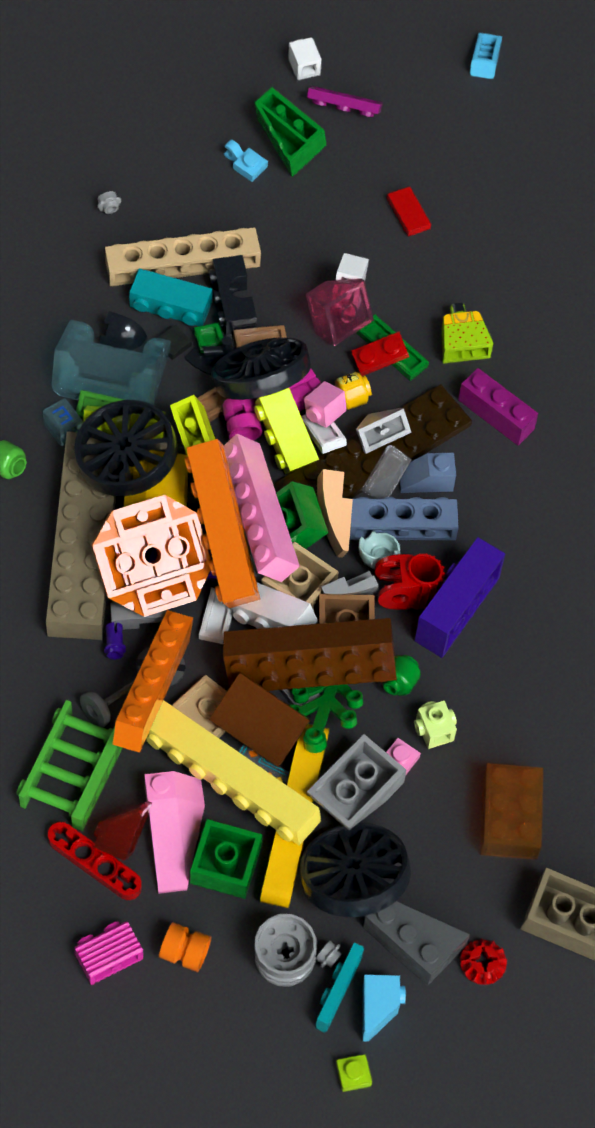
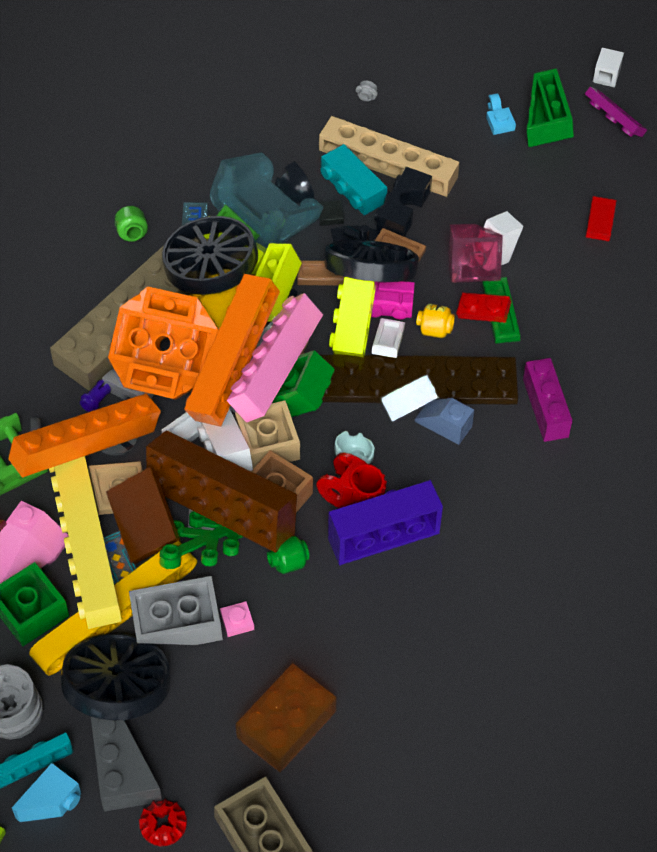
camera: 40 degrees right, 5 degrees down
(208, 335) = (359, 218): green tile -> none
(241, 418) = (326, 293): dark pink wheel -> none
(325, 404) = (401, 317): bright pink brick -> none
(329, 954) = (45, 730): light grey plate -> none
(335, 509) = (342, 397): light nougat slope -> none
(361, 585) = (310, 464): light grey slope -> none
(382, 428) = (432, 361): light grey slope -> none
(414, 527) = (400, 451): sand blue brick -> none
(435, 724) = (282, 608): yellowish green brick -> none
(464, 336) = (564, 331): lime torso -> none

